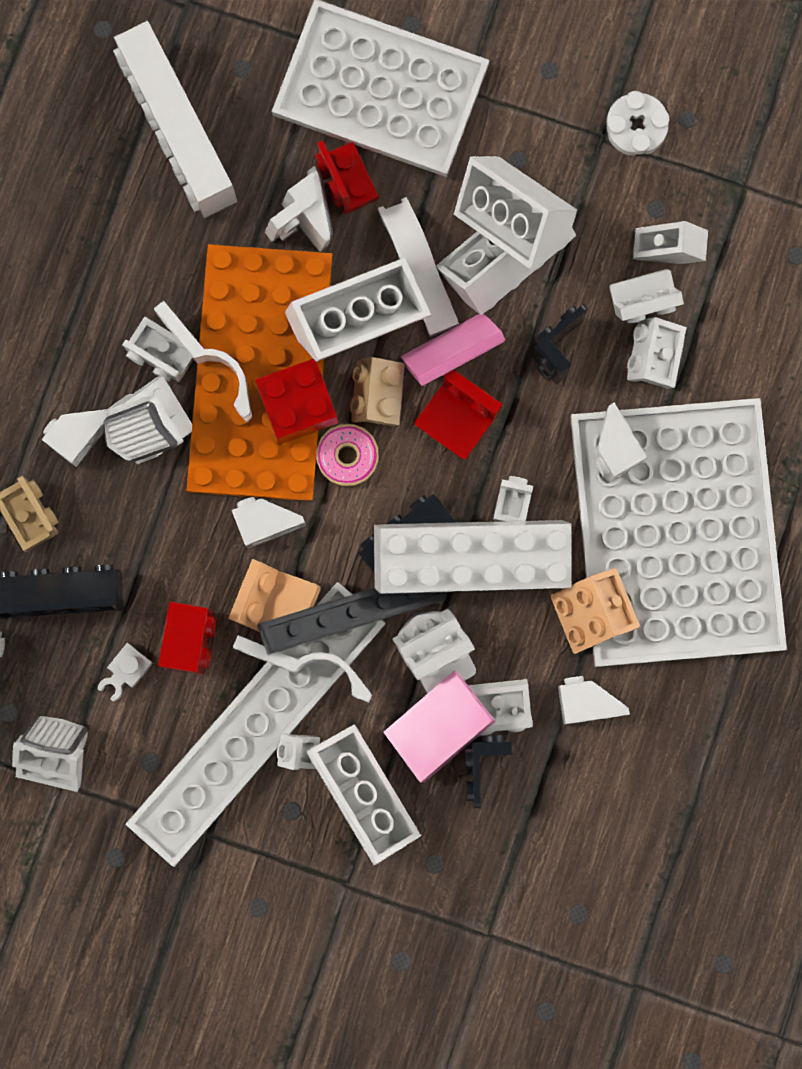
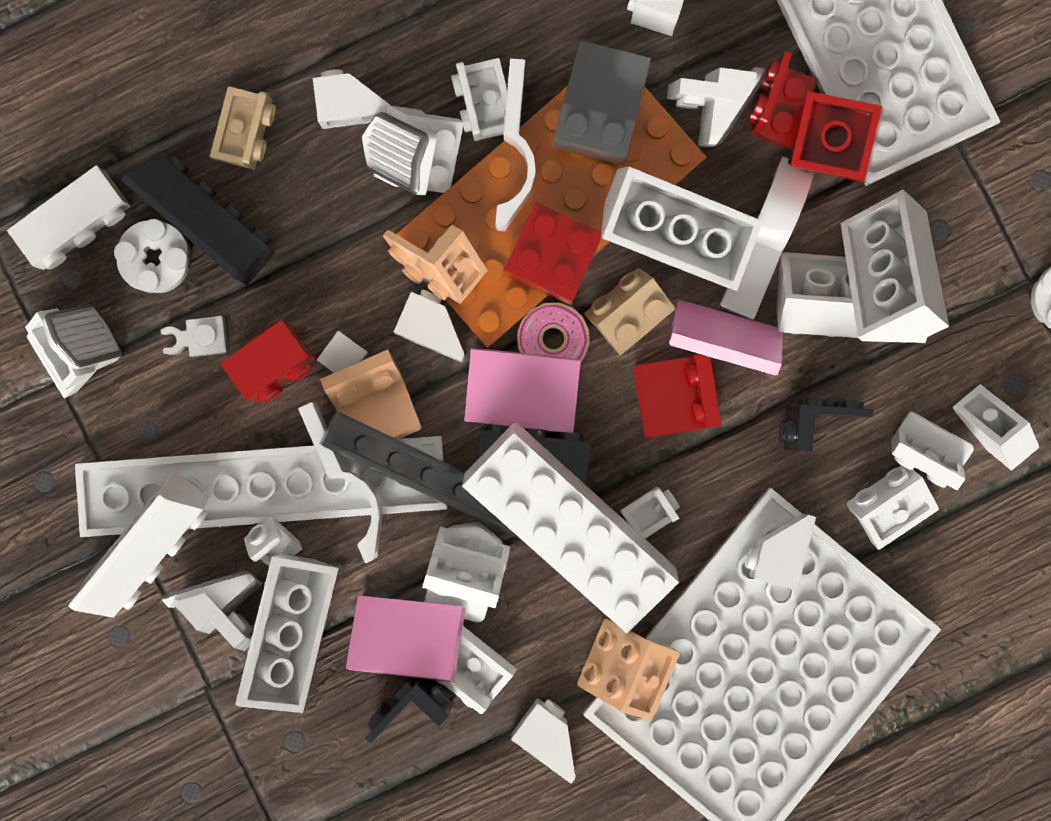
camera: 40 degrees right, 5 degrees up
(61, 636) = (132, 254): none -> white plate
(219, 831) = (141, 547): none -> white slope
(224, 592) = (341, 353): none -> white tile
(236, 282) = (601, 103): none -> dark grey slope
(240, 475) = (448, 268): none -> light nougat bracket
(298, 824) = (213, 606): none -> white piece
(357, 502) = (523, 389): none -> bright pink tile
(399, 163) = (837, 136): none -> red brick

